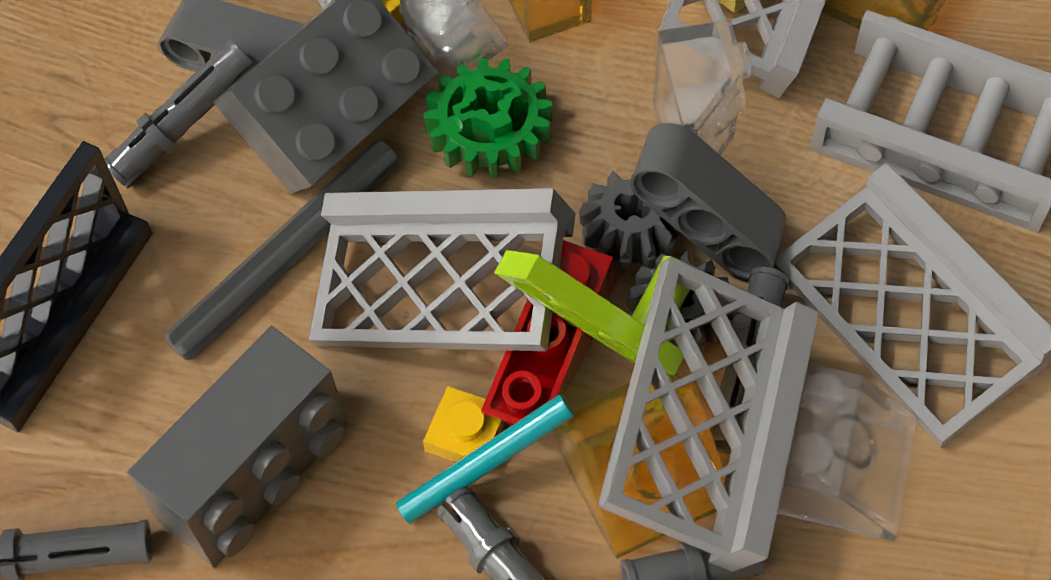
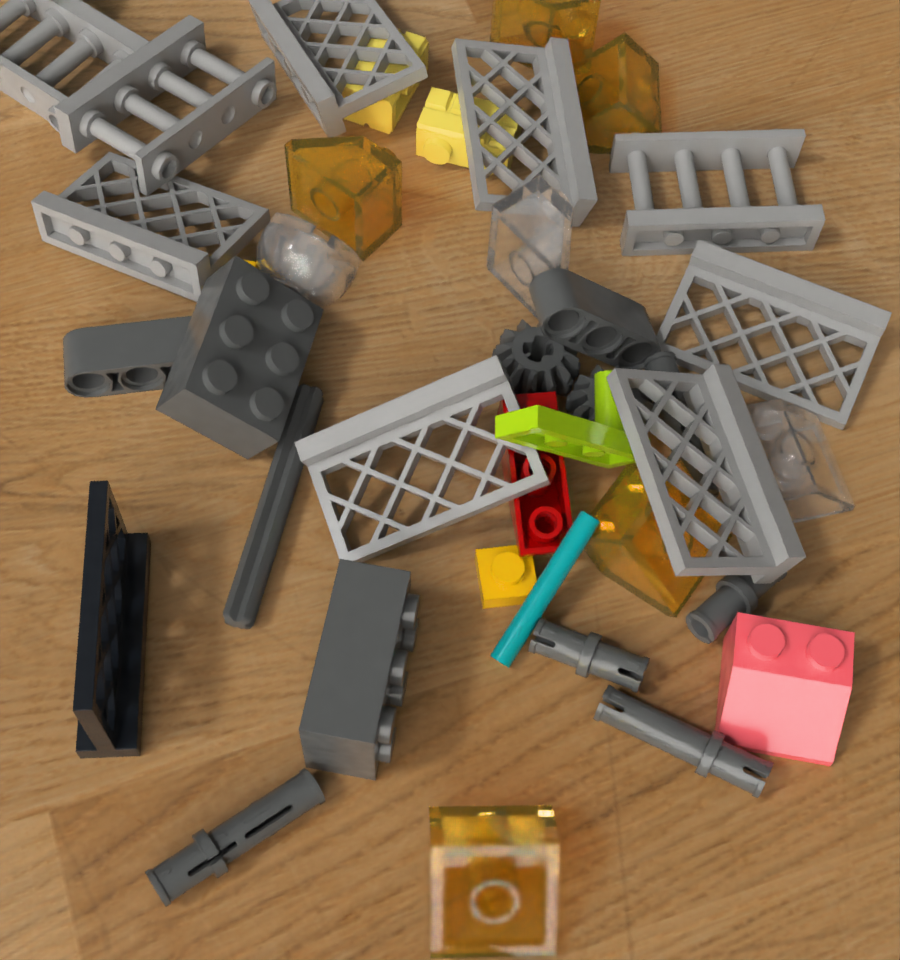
camera: 35 degrees left, 0 degrees up
(170, 121) = (127, 425): dark grey pin -> none
(486, 113) = (377, 330): green gear -> none

